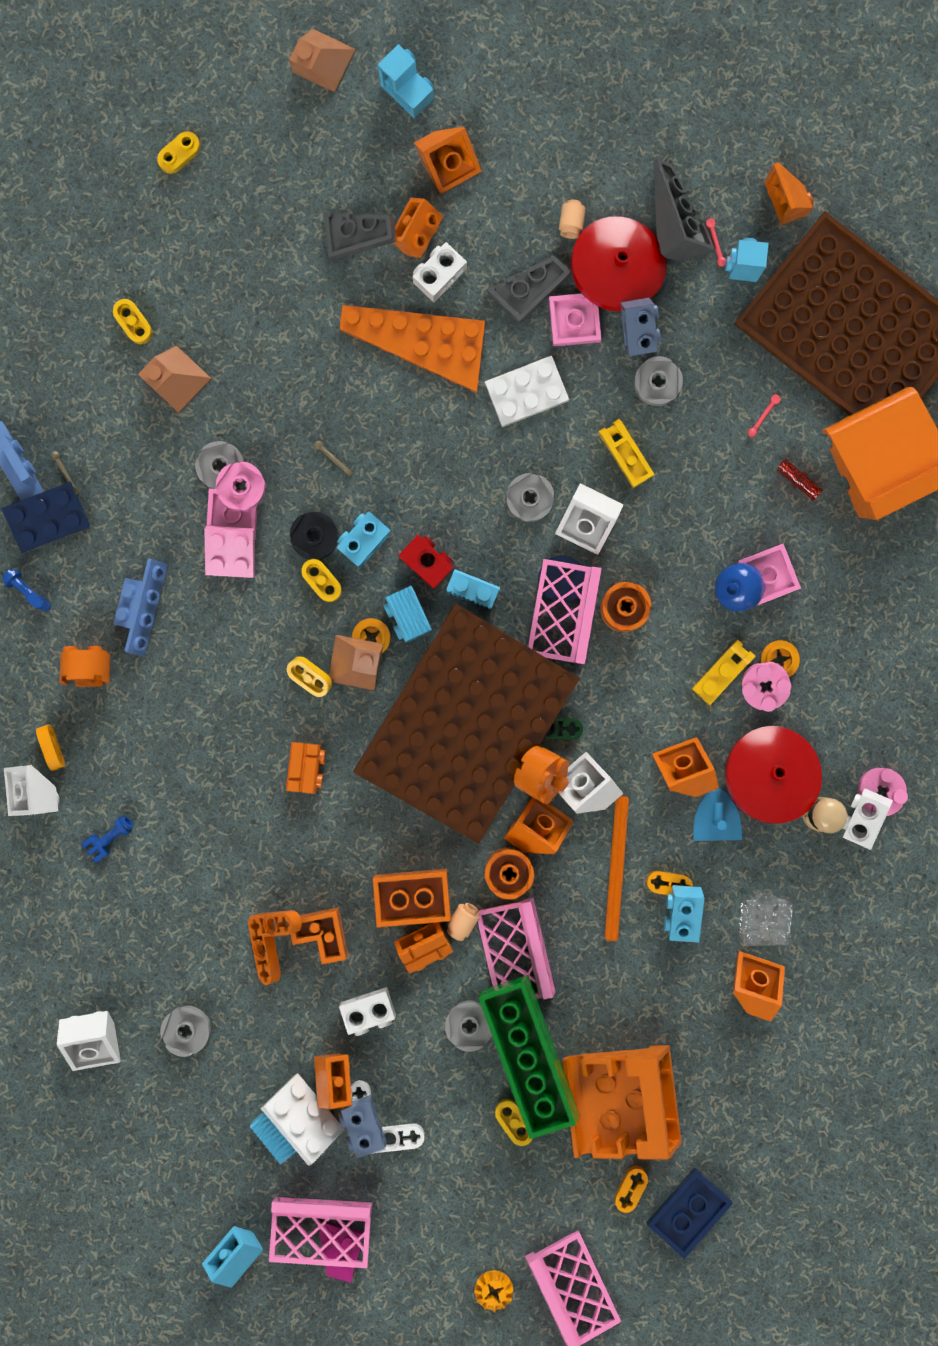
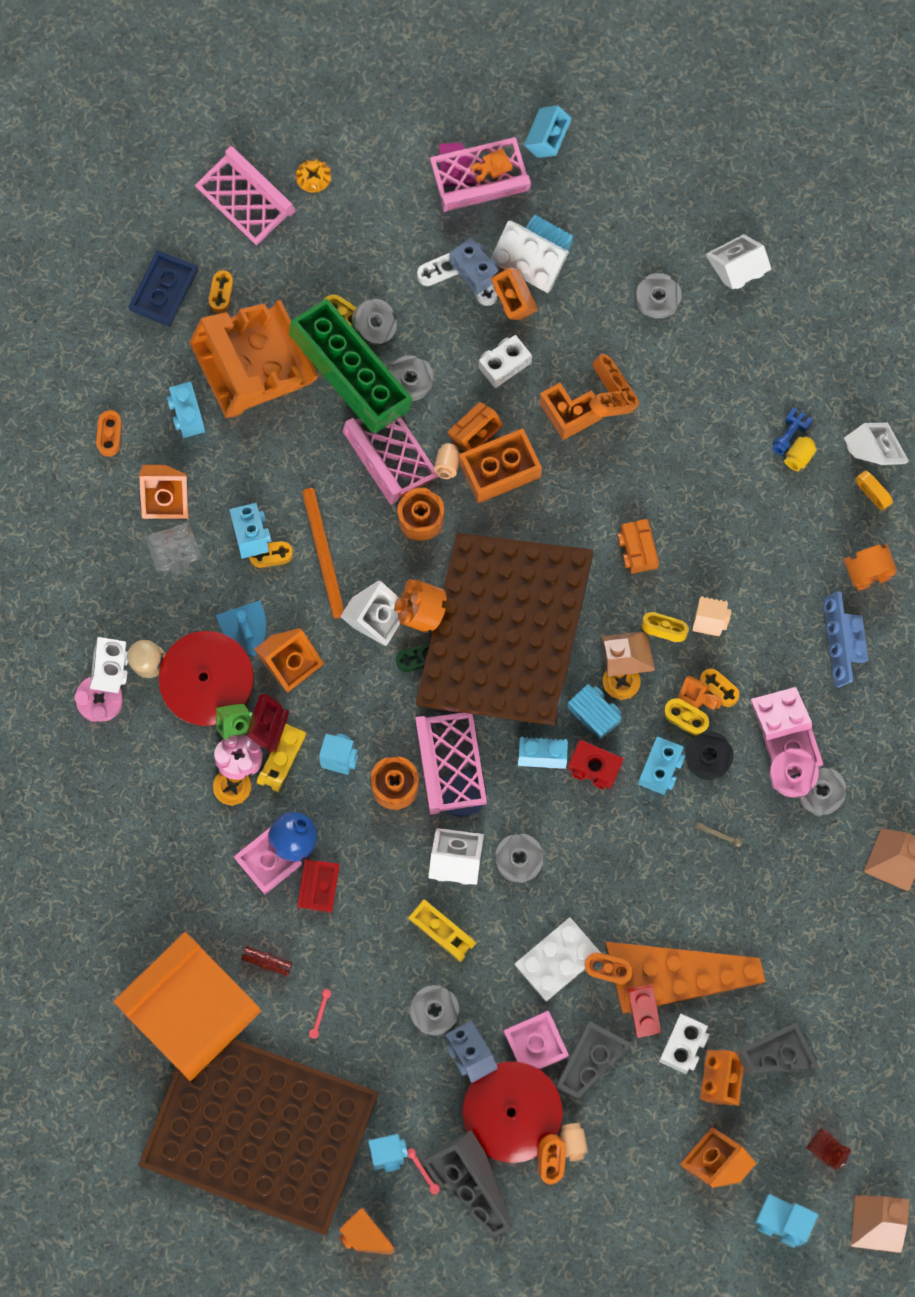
camera: 155 degrees right, 15 degrees down
(107, 810) = (800, 453): none -> yellow brick
(260, 668) = (711, 616): none -> light nougat brick
(284, 596) = (722, 683): none -> light orange beam
(301, 1236) = (494, 164): none -> orange plate
(303, 598) = (696, 694): none -> orange plate
(342, 133) = (828, 1150): none -> clear red bracket
(465, 313) = (644, 1010): none -> plate
(485, 358) = (609, 968): none -> orange plate
(500, 1099) = (385, 319): none -> light grey plate
(539, 828) = (405, 560): orange slope -> none
(598, 208) = (551, 1157): none -> orange plate
(671, 652) = (338, 753): none -> medium azure brick
(707, 1067) = (187, 410): none -> medium azure brick
(728, 534) = (318, 885): none -> red plate
(729, 707) = (267, 723): none -> dark red plate
(760, 721) = (232, 720): none -> bright green brick
(793, 1068) = (109, 434): none -> orange plate

